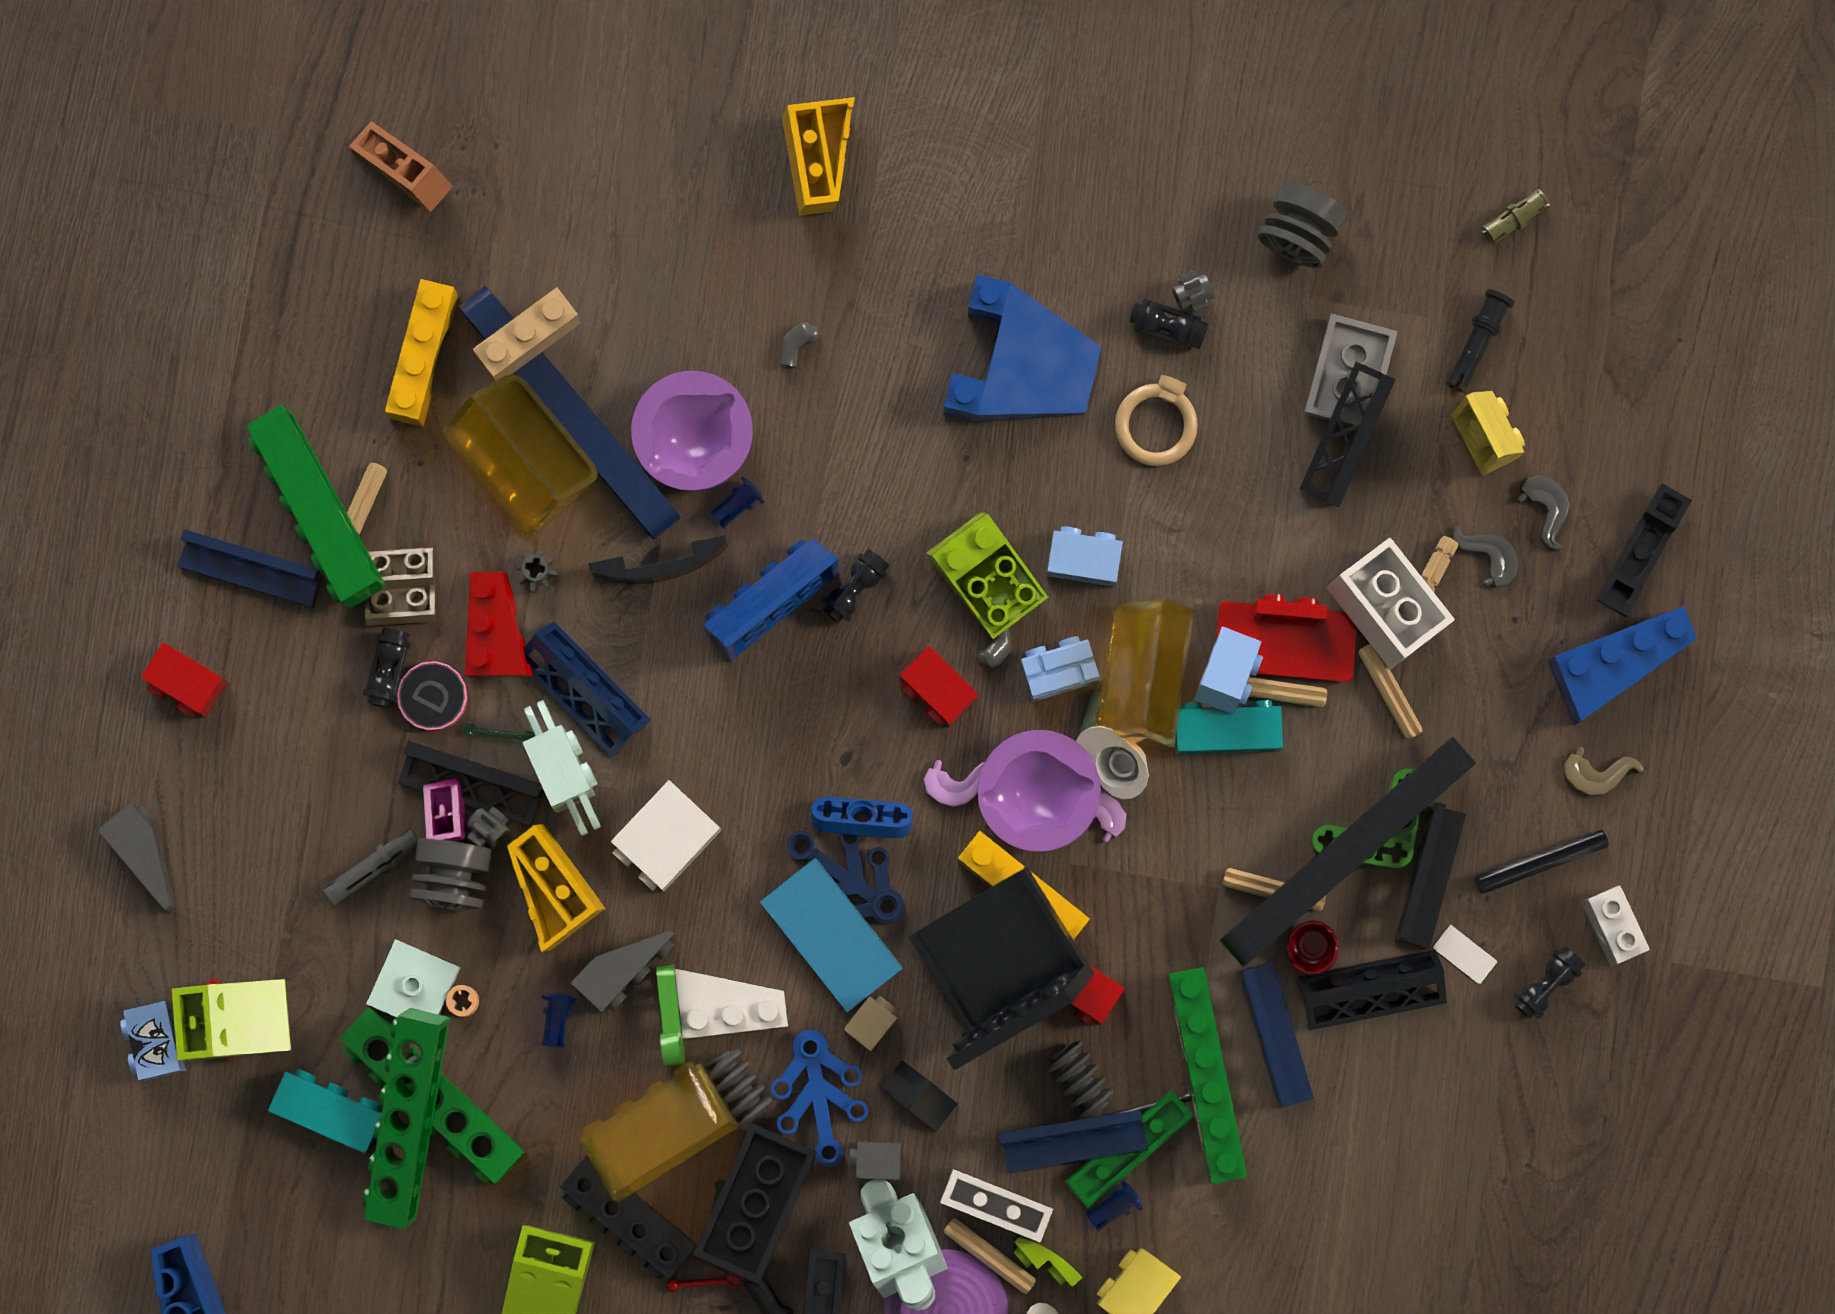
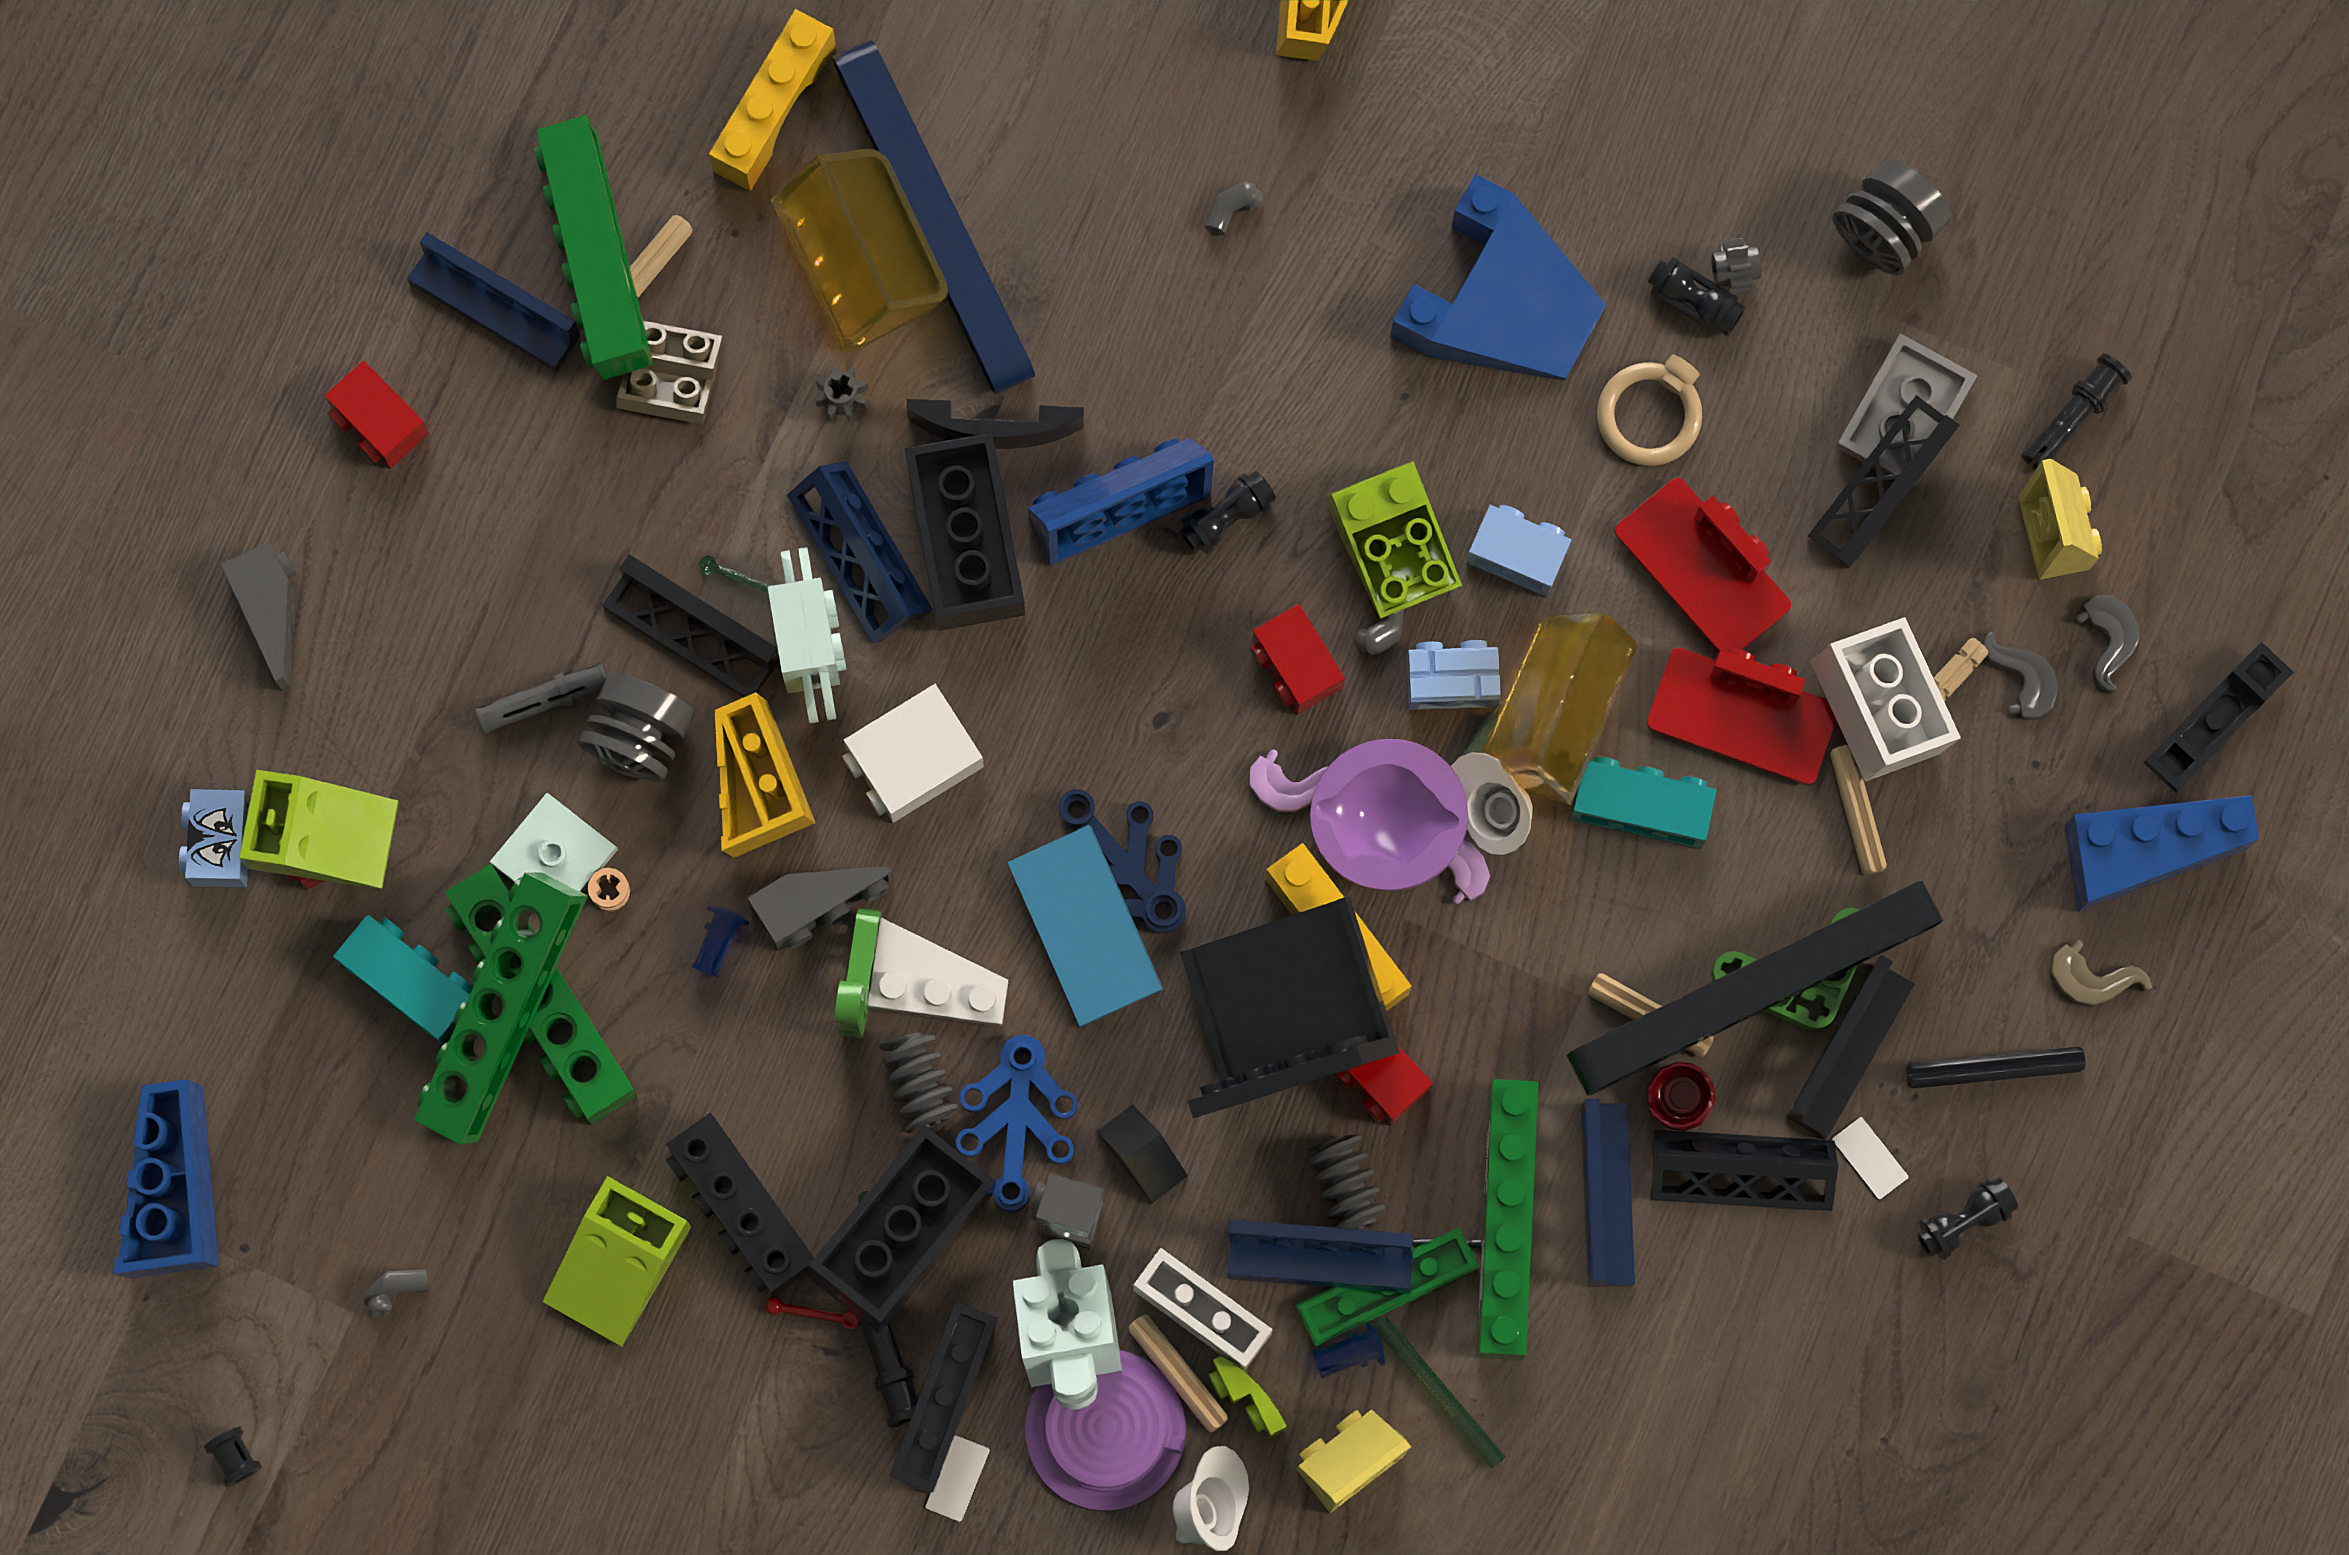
camera: 15 degrees right, 5 degrees down
(389, 653) = (635, 448): black piece -> none
(432, 696) = (673, 513): black tile -> none
(445, 811) = (651, 650): magenta slope -> none
(487, 828) = (698, 685): dark grey gear -> none
(493, 635) = (767, 456): red wing -> none
(527, 335) = (907, 106): tan brick -> none
(657, 1131) = (806, 1103): clear yellow windscreen -> none
(659, 655) = (965, 531): none -> black brick
(692, 430) = (1076, 273): medium lavender piece -> none
(737, 502) = (1109, 376): clear blue pin -> none
(836, 824) = (1169, 808): blue beam -> none
(871, 1022) = (1106, 1046): dark tan brick -> none
(1188, 1218) = (1439, 1392): none -> clear green bar
(1228, 532) = (1705, 564): none -> red bracket
(1228, 670) = (1662, 727): light blue brick -> none
(1287, 692) = (1715, 772): tan axle -> none
(1515, 216) = (2158, 276): olive pin -> none
(1615, 925) = (2068, 1168): white brick -> none

